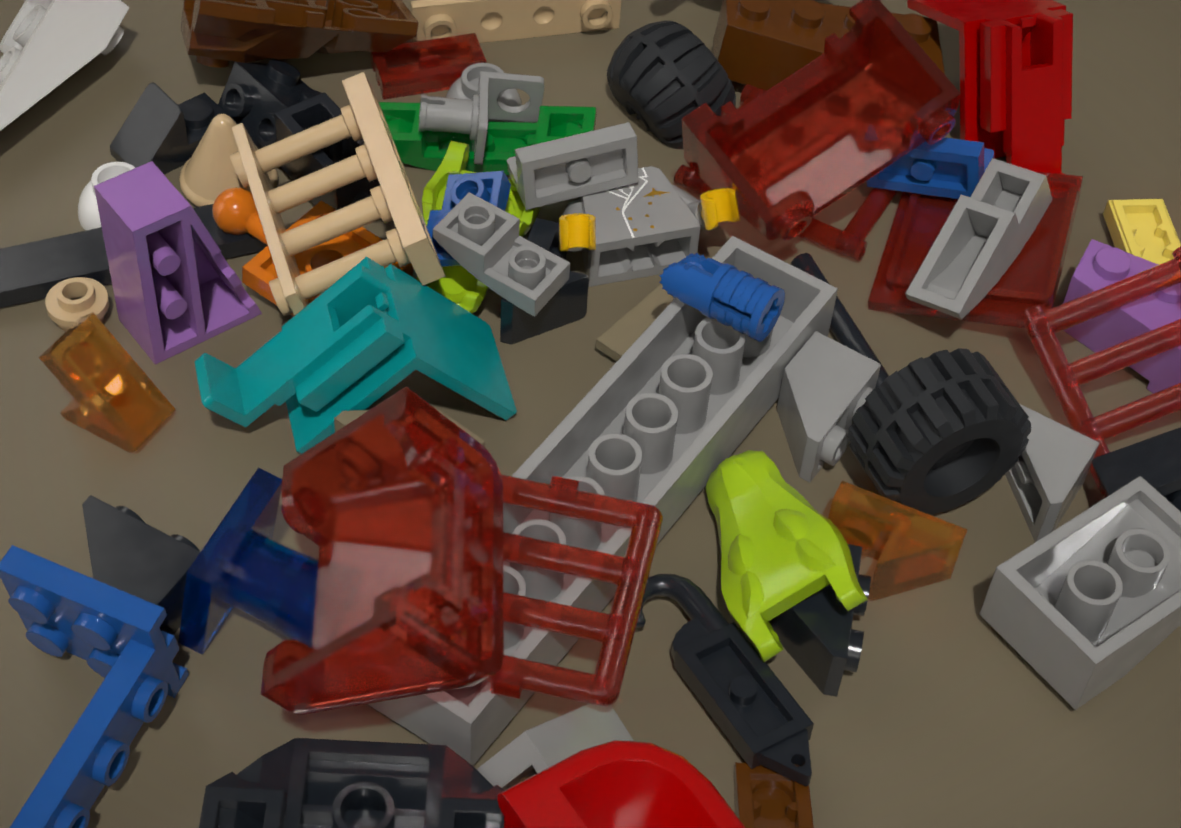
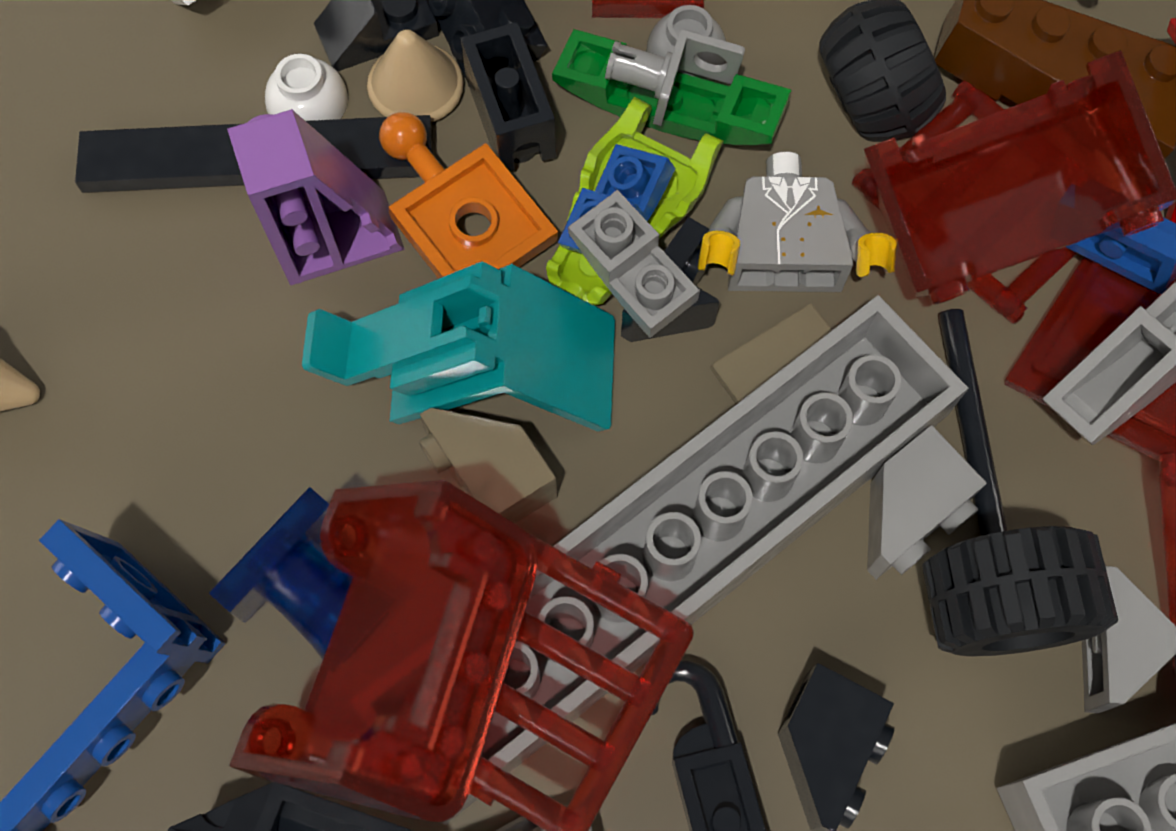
camera: 20 degrees right, 20 degrees up
(74, 299) = (234, 218): tan plate -> none
(107, 386) = (226, 313): clear orange slope -> none
(138, 557) = (194, 530): black slope -> none
(390, 200) = (537, 184): tan fence -> none
(575, 165) = (743, 166): light grey panel -> none
(725, 294) = (840, 378): blue hinge -> none
(773, 547) = (807, 679): lime animal -> none
(907, 543) = (947, 697): clear orange slope -> none

